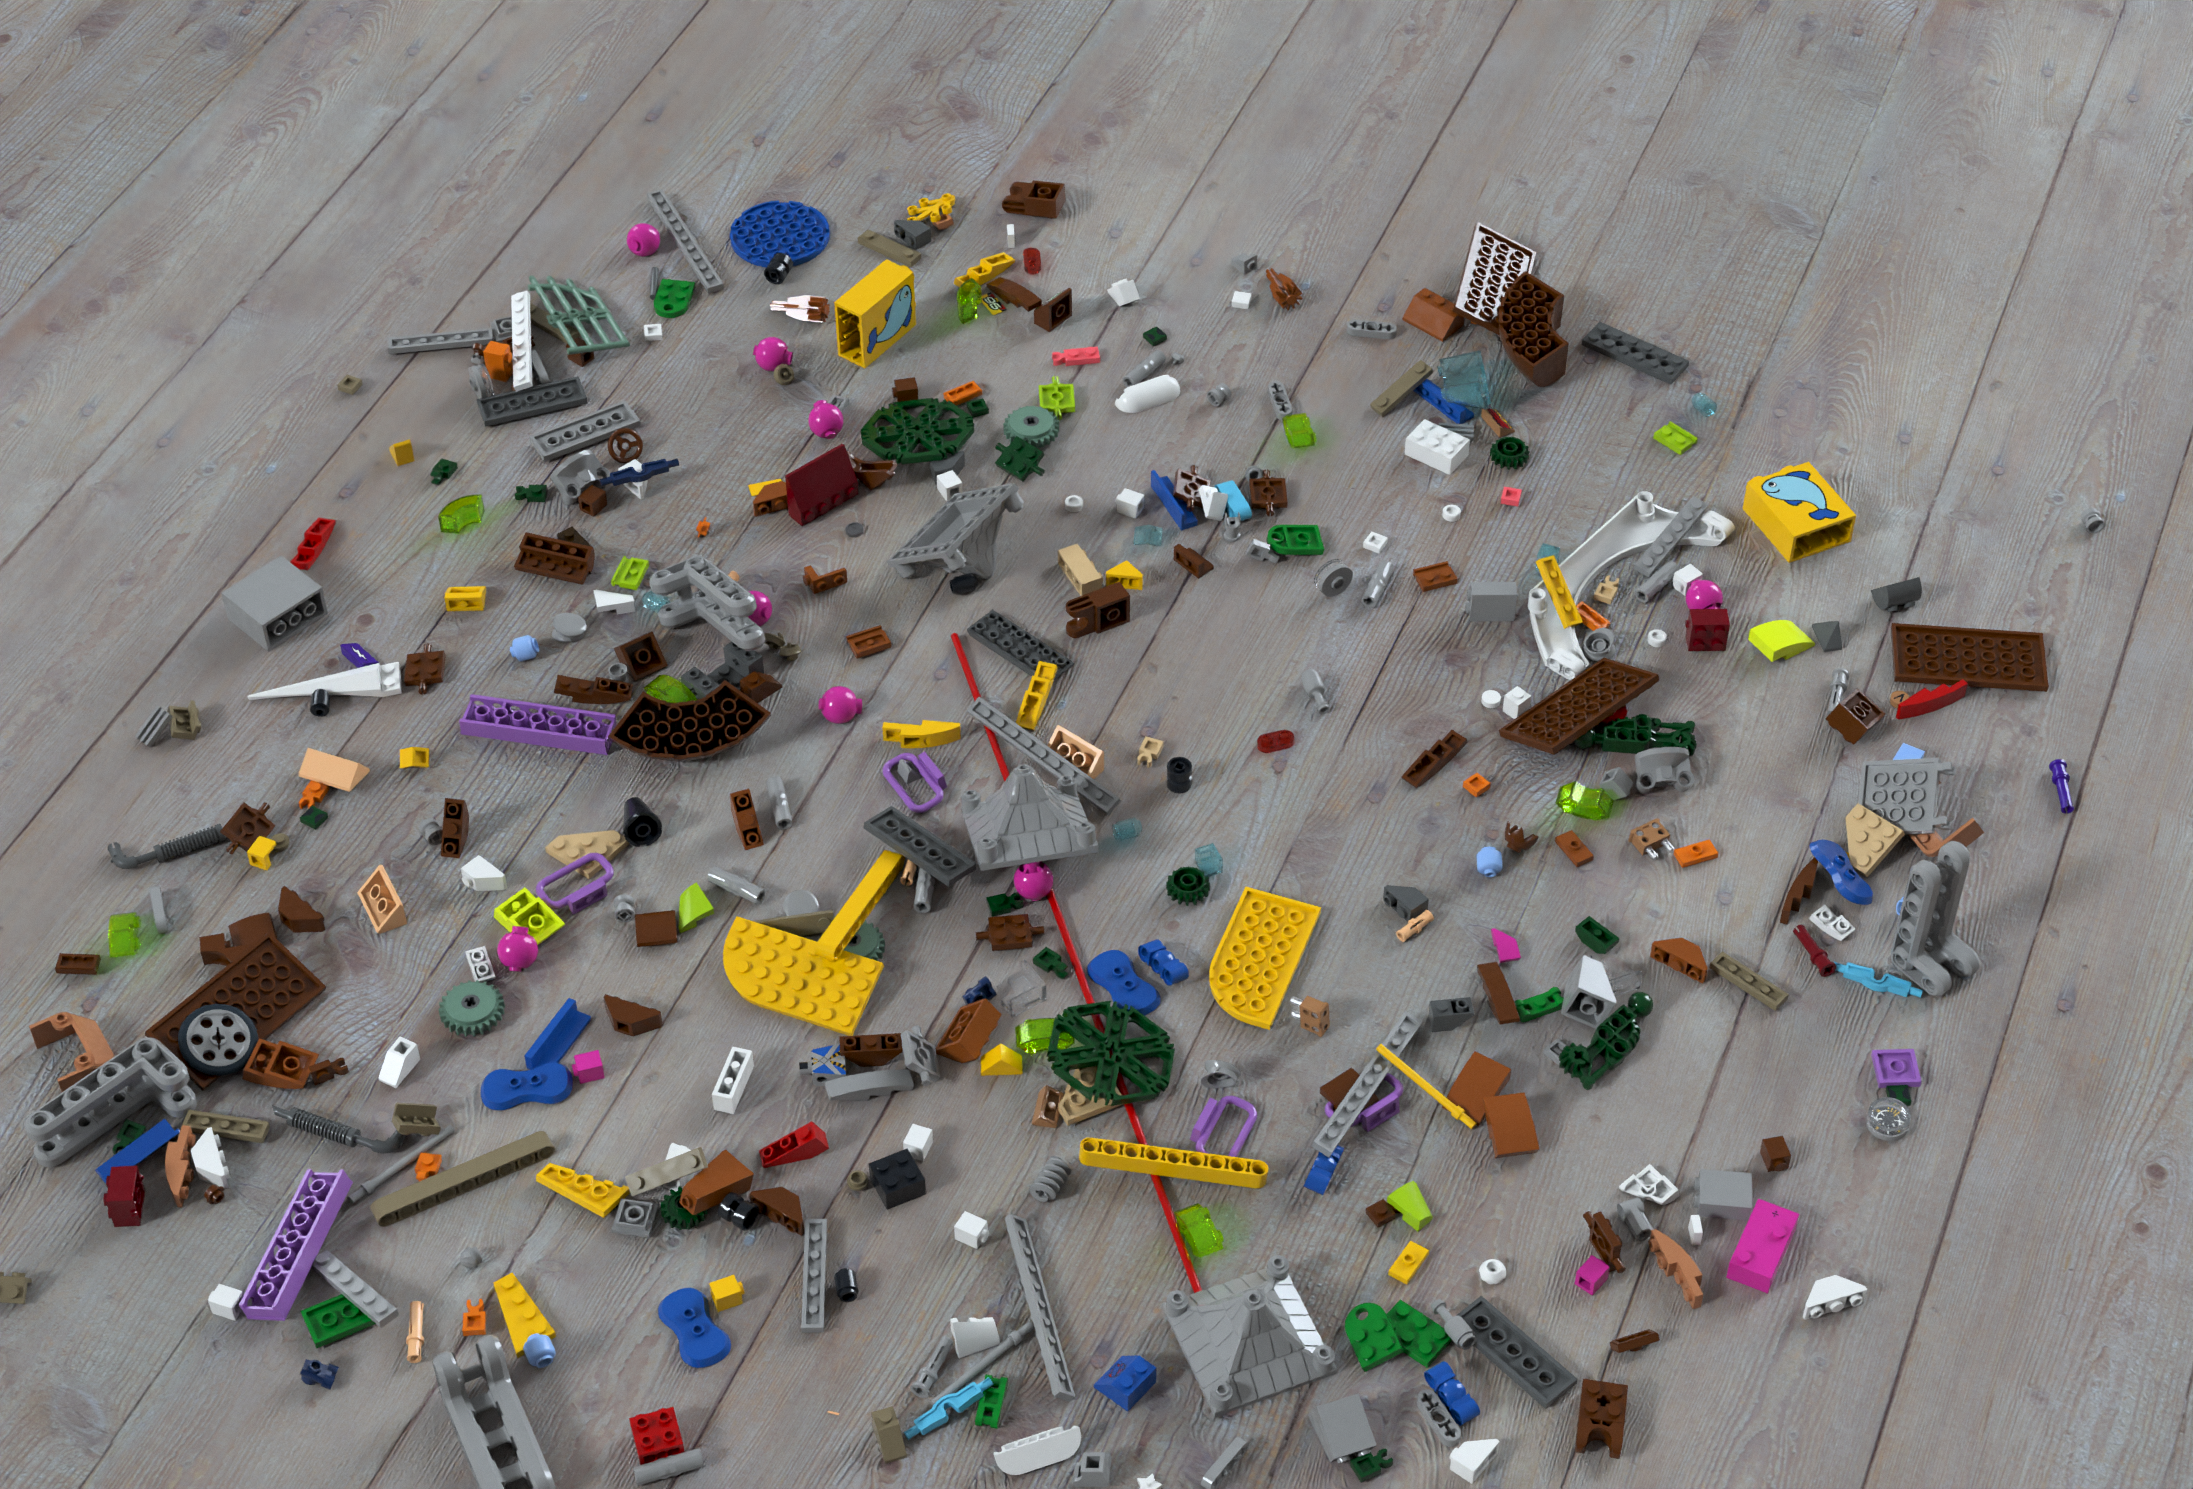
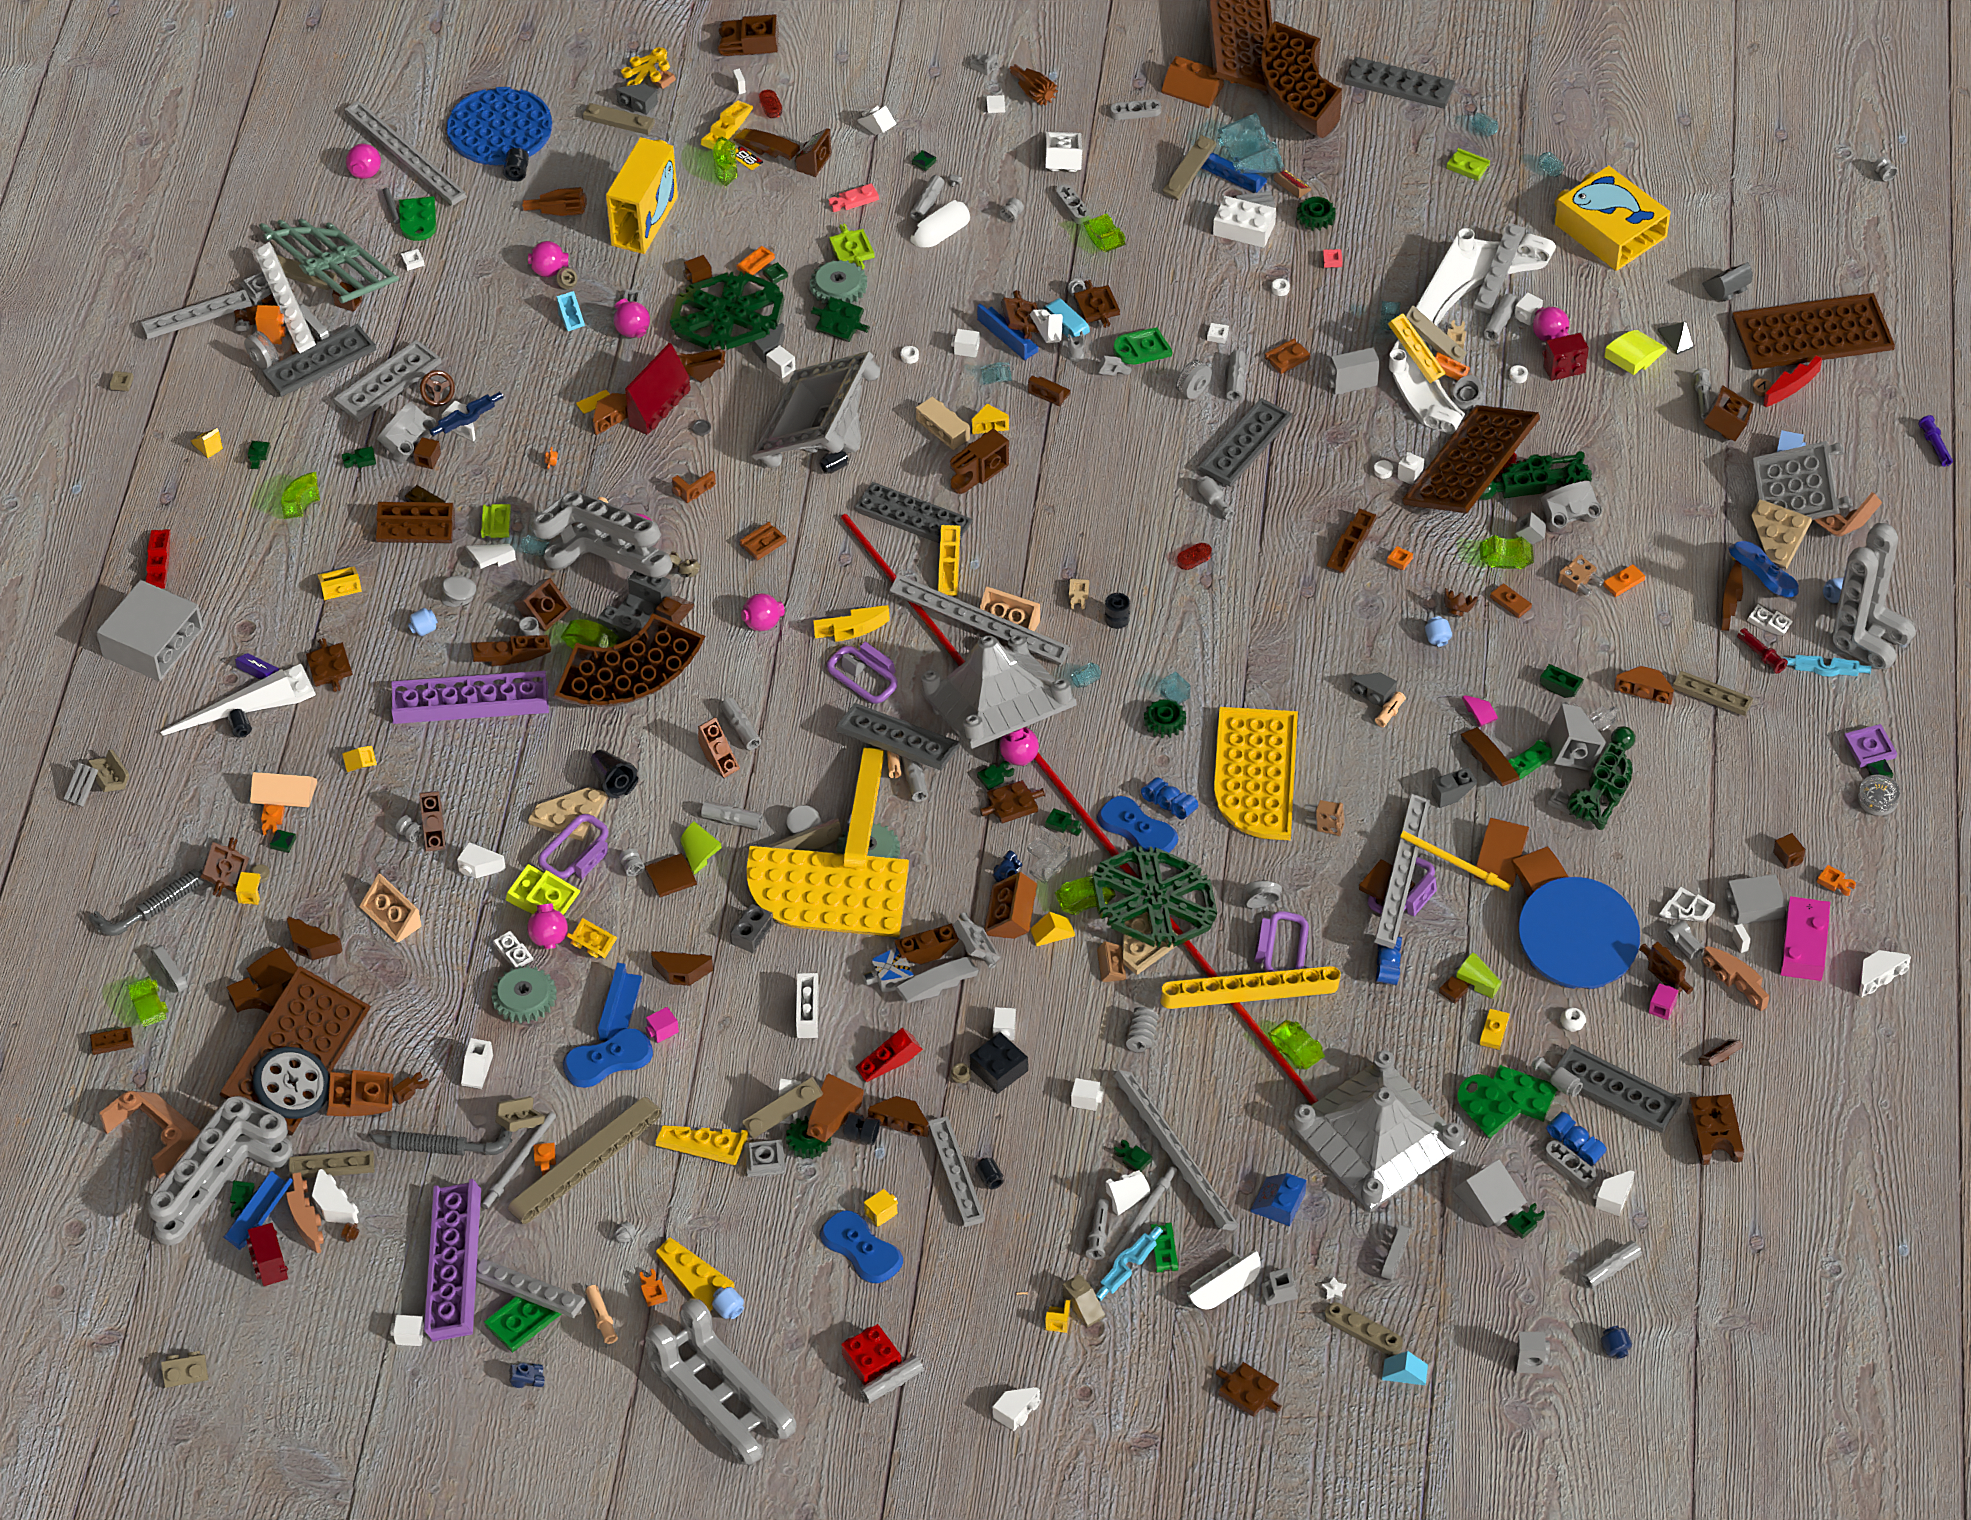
camera: 15 degrees left, 5 degrees up
(557, 970) = (593, 938): none -> yellow bracket
(711, 995) = (752, 928): none -> flat silver brick
(773, 402) = (569, 311): none -> medium azure slope
(858, 1446) = (1058, 1318): none -> yellow panel
(996, 1305) = (1134, 1158): none -> dark green plate
(1287, 352) = (1063, 151): none -> white slope
(1364, 646) = (1245, 442): none -> dark grey plate
(1527, 1186) = (1579, 932): none -> blue tile
(1582, 584) = (1434, 336): none -> plate
(1756, 452) = (1551, 164): none -> clear light blue brick
(1813, 1193) = (1833, 879): none -> orange plate

